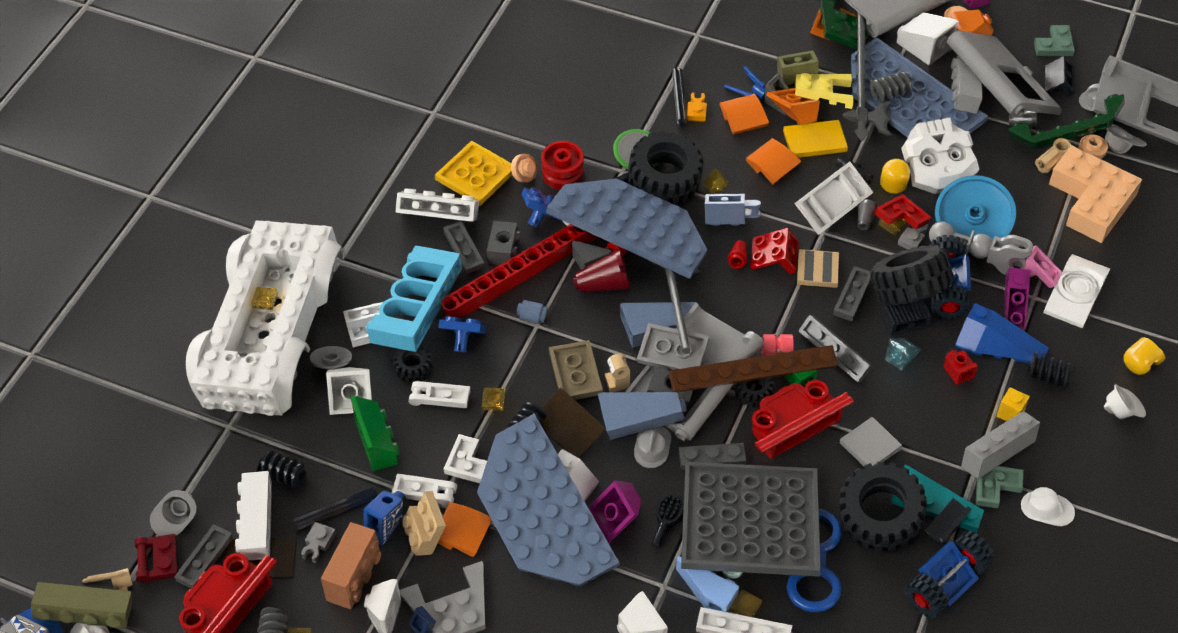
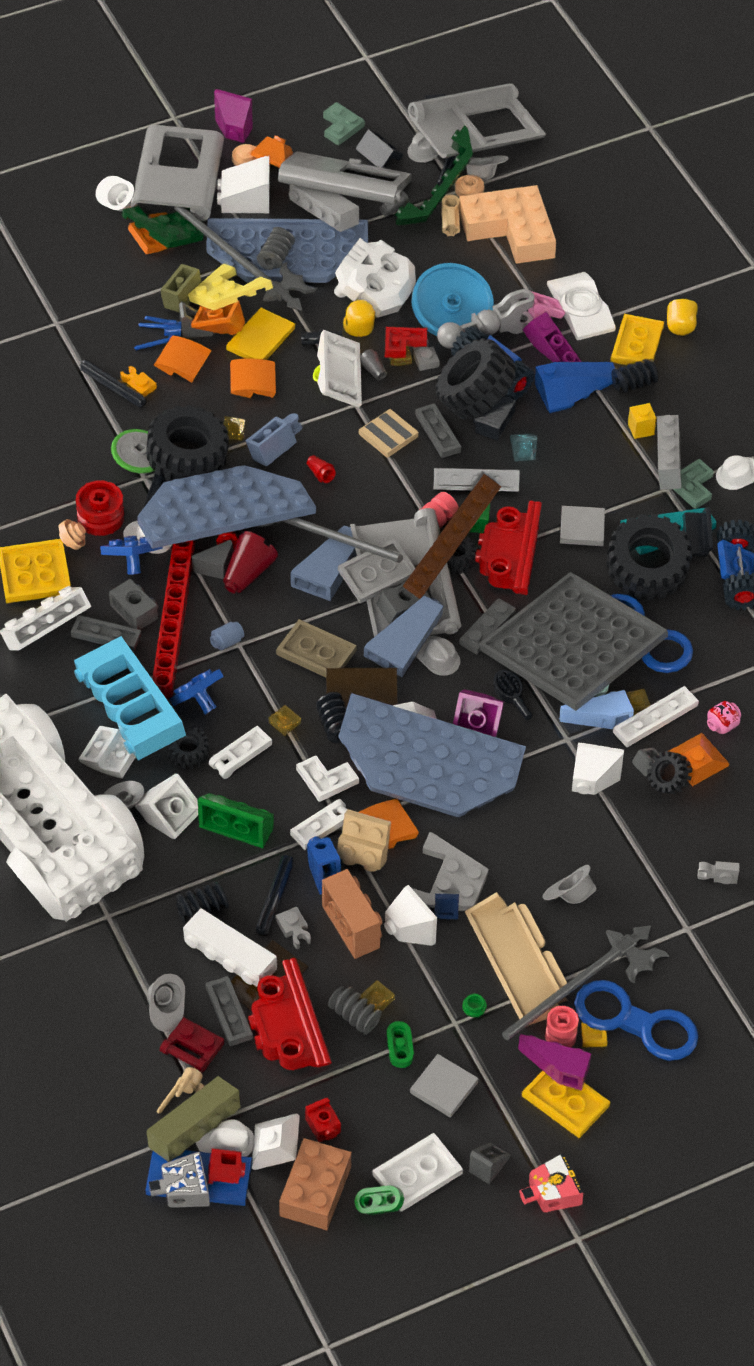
camera: 50 degrees left, 0 degrees up
(264, 298) = (19, 794): clear yellow plate -> none
(619, 374) = (354, 624): tan leg -> none
(775, 248) = (342, 445): red bracket -> none
(960, 366) = (573, 422): red brick -> none
(1088, 348) = (637, 339): none -> yellow tile
(1124, 403) = (707, 361): white piece -> none

